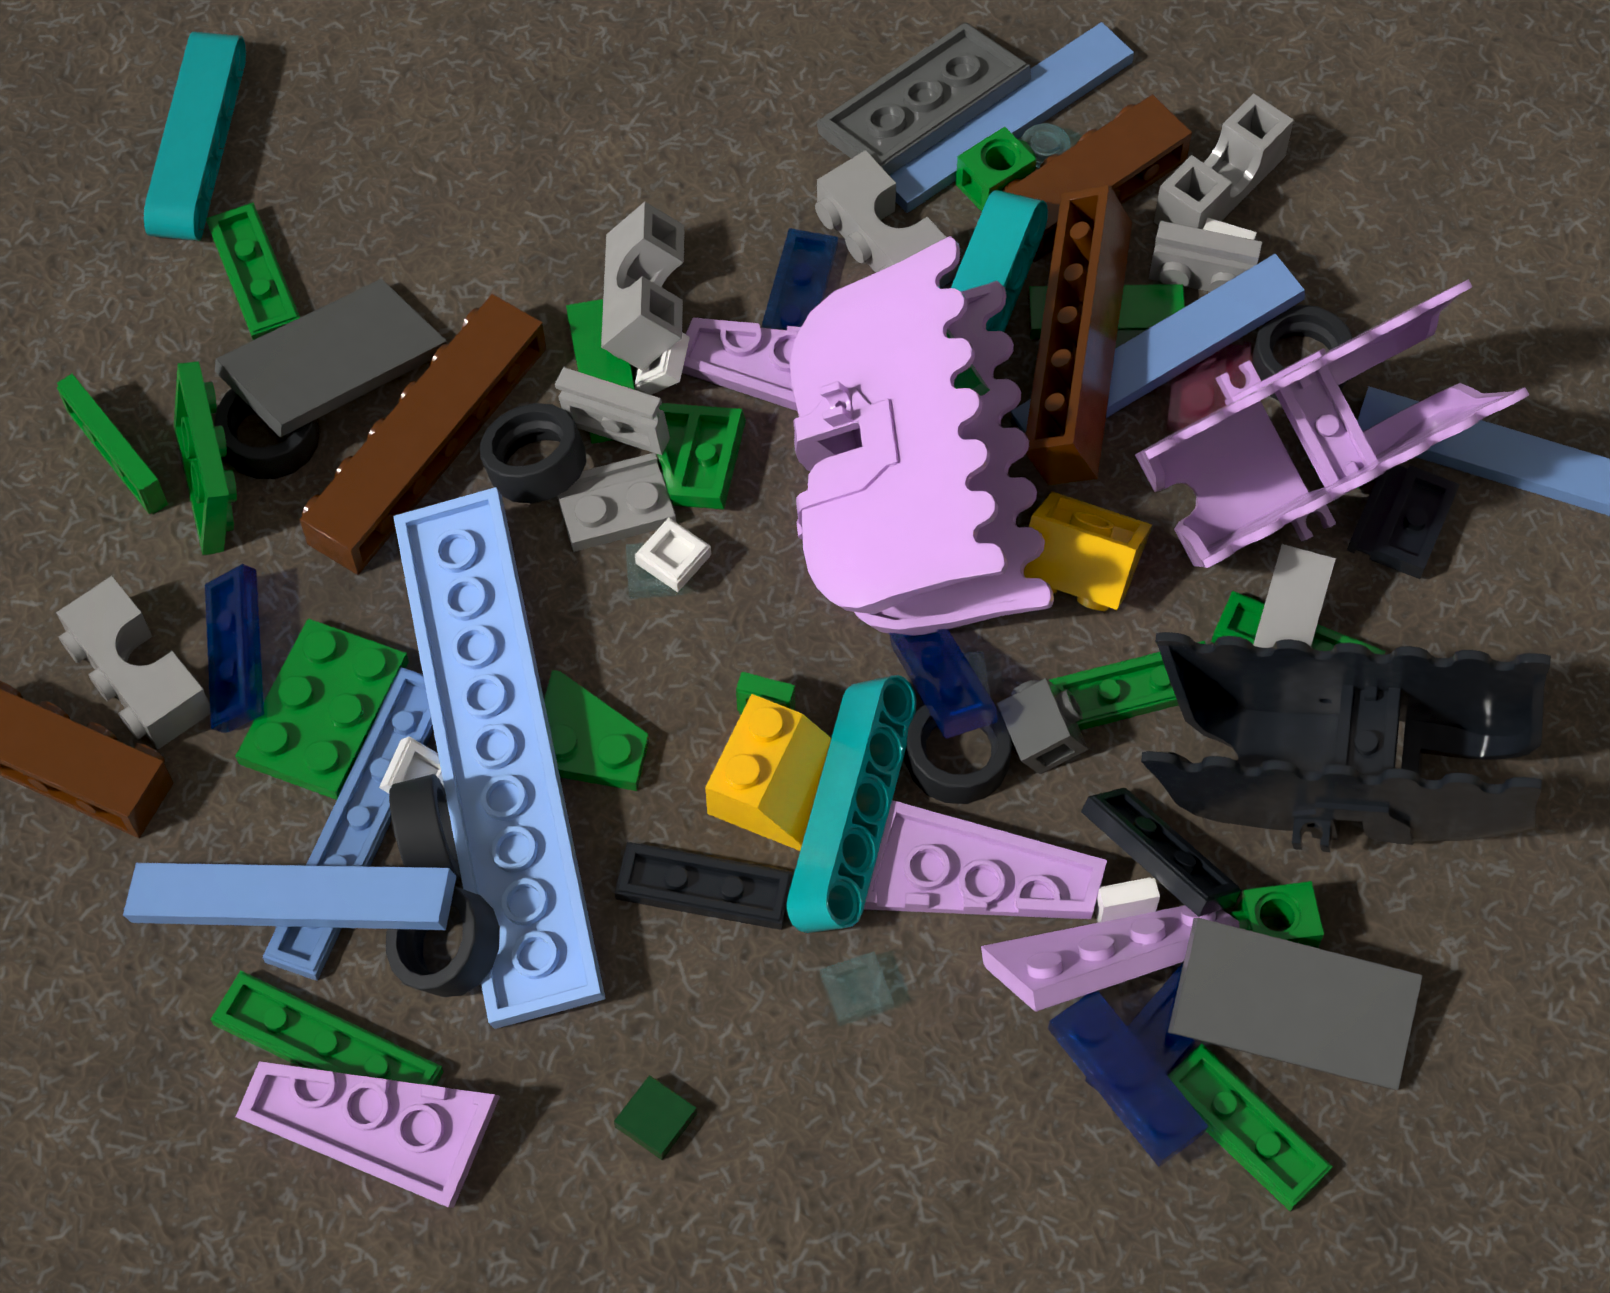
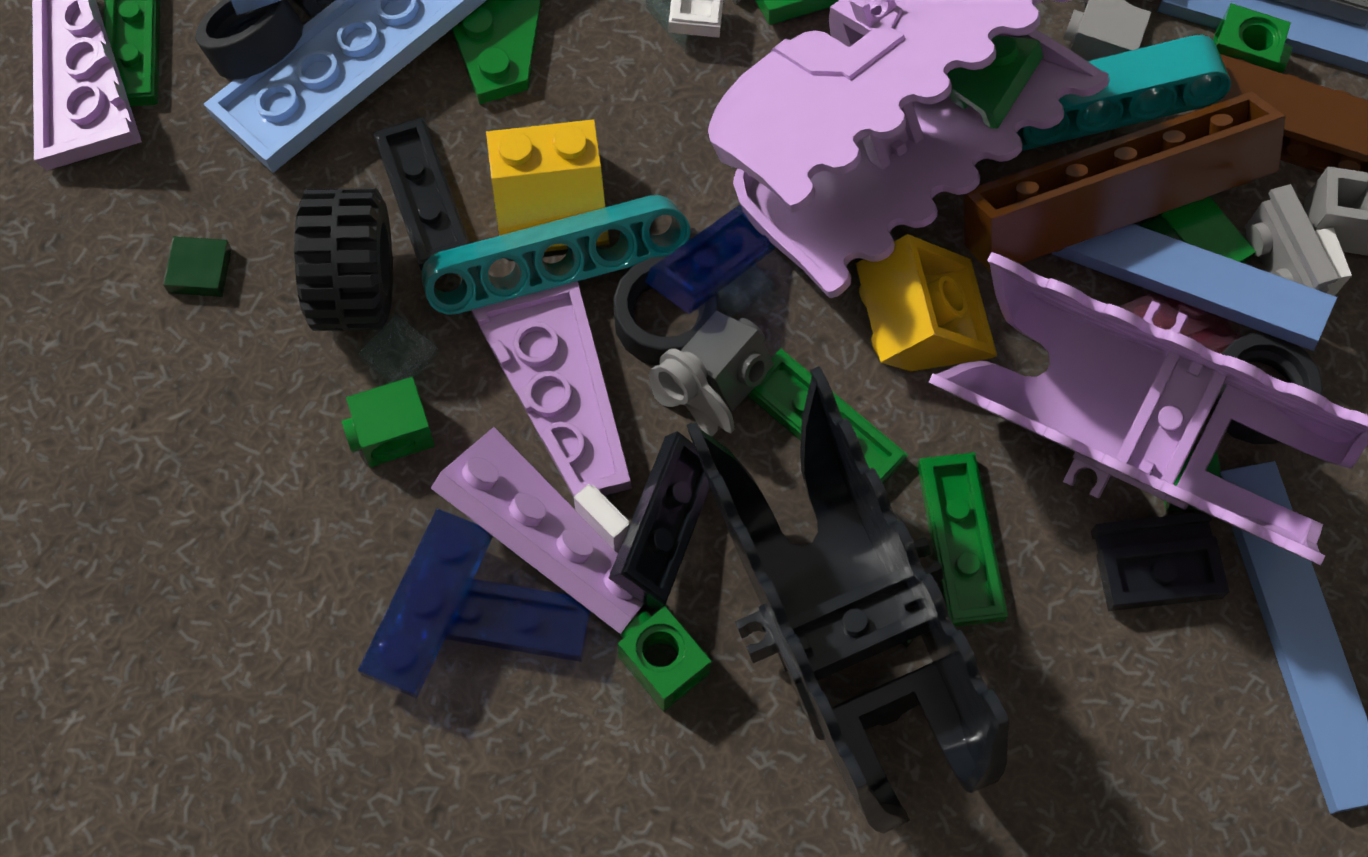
camera: 55 degrees right, 5 degrees up
(763, 970) = (343, 259): none -> black tyre
(766, 688) = (611, 142): green tile -> none
(930, 1026) = (387, 422): none -> green brick
(1046, 140) = (1311, 68): clear light blue plate -> none
(1060, 762) = (684, 382): none -> light grey plate
(1249, 1128) = (452, 736): green tile -> none
(1294, 597) = (975, 504): light grey tile -> none
(1295, 1003) = (583, 712): dark grey tile -> none

